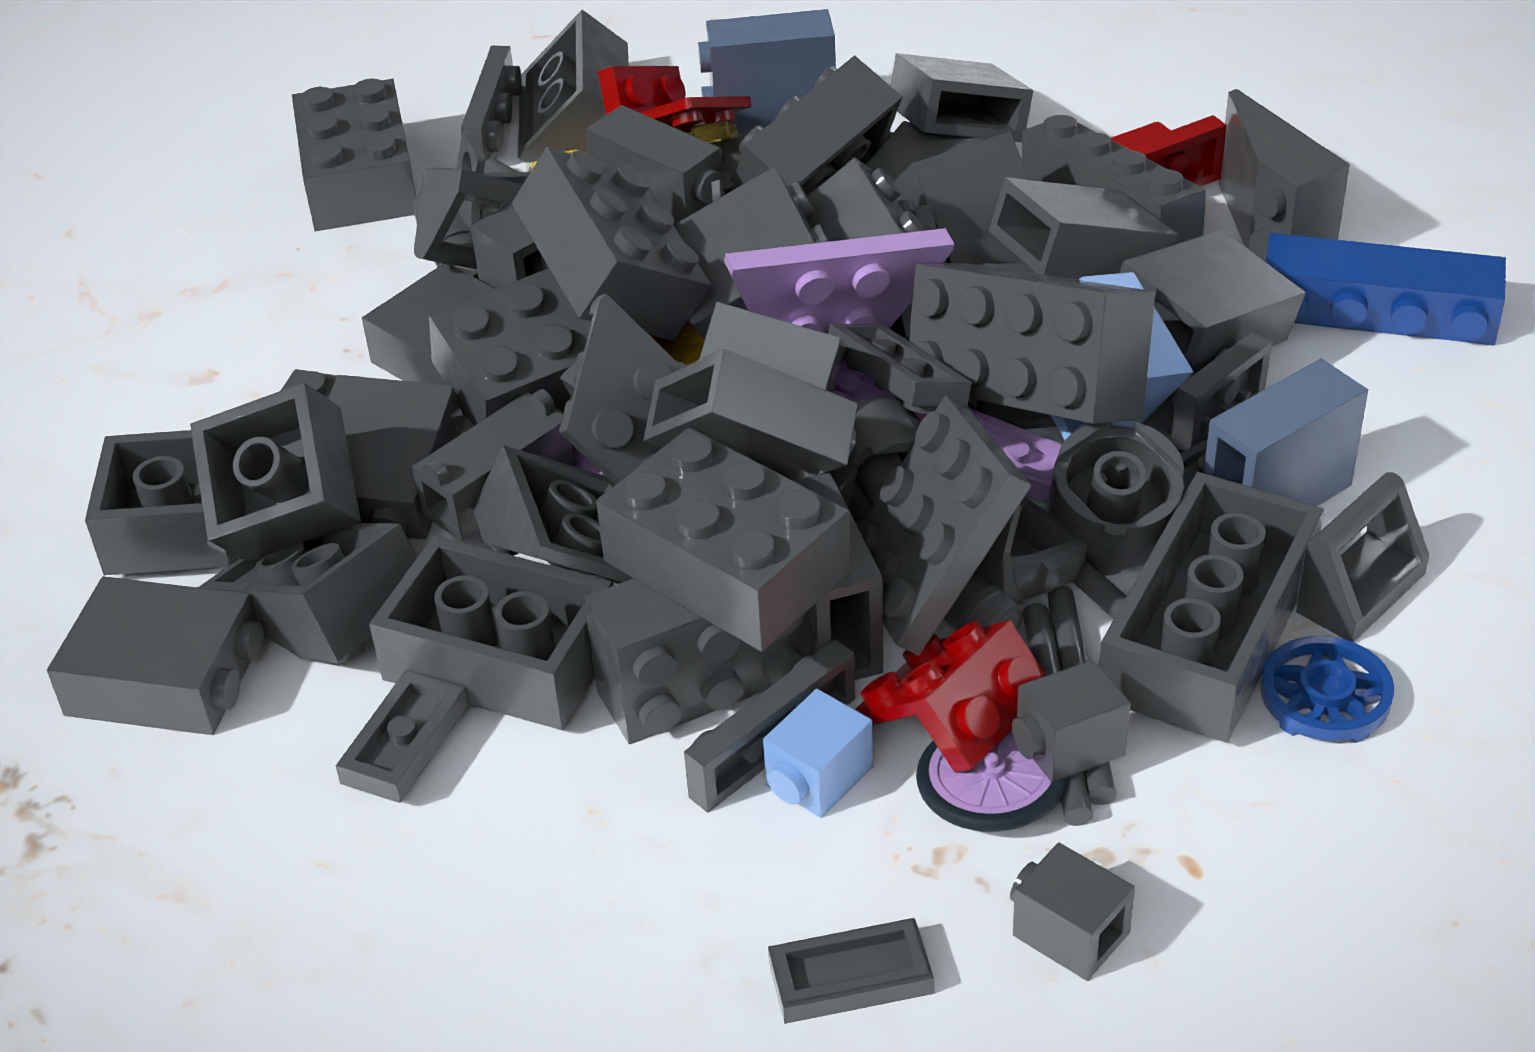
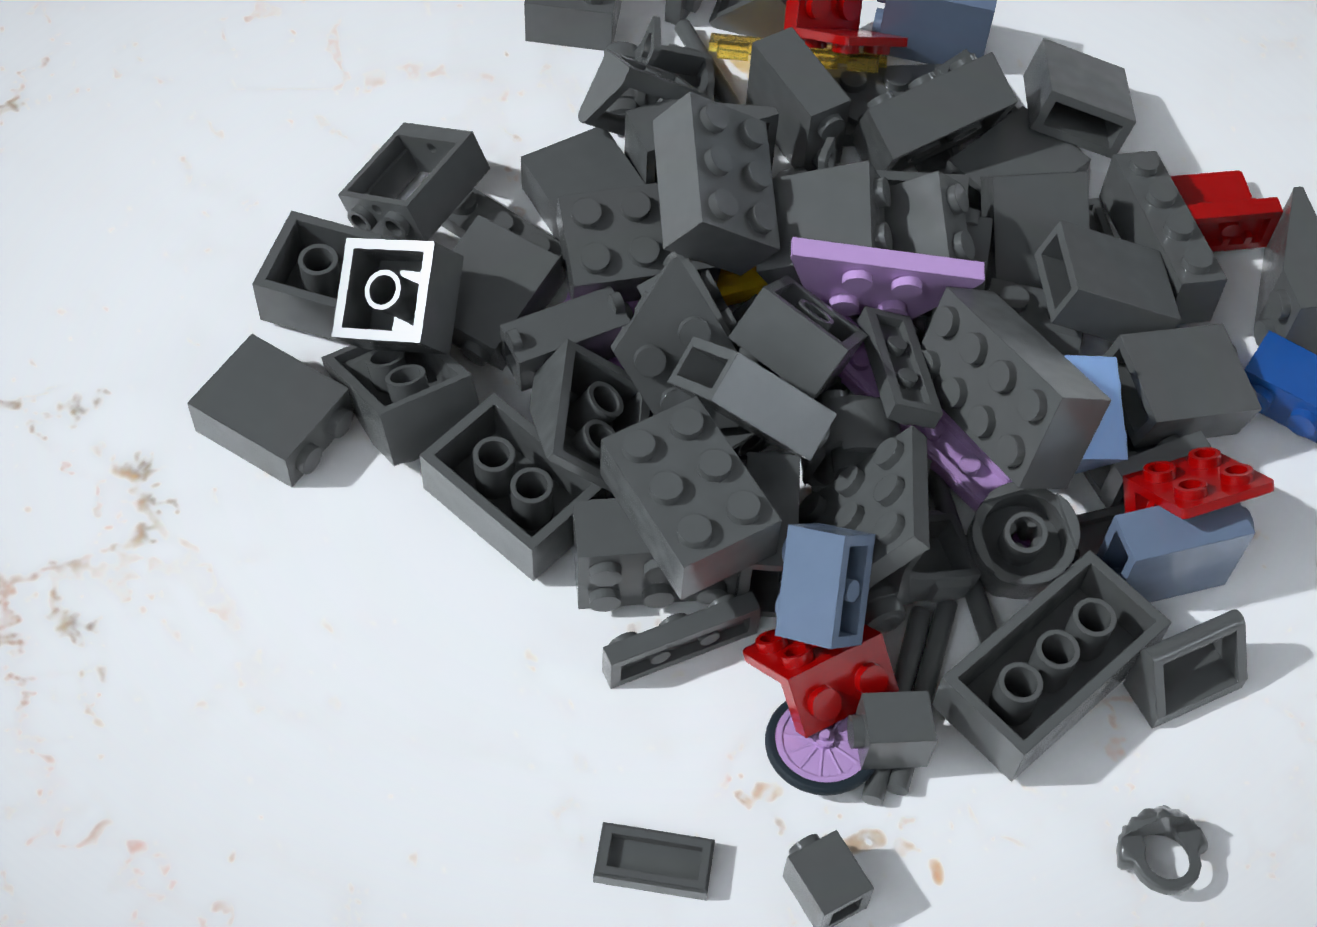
camera: 15 degrees right, 15 degrees up
(226, 353) = (454, 169): none -> dark grey window
(402, 736) = (418, 545): dark grey plate -> none
(818, 753) = (703, 678): light blue brick -> none
(924, 573) = (824, 585): none -> sand blue brick
(1276, 367) = (1194, 484): none -> red bracket
(1327, 689) = (1109, 764): blue wheel -> none
(1438, 719) = (1162, 822): none -> dark grey piece

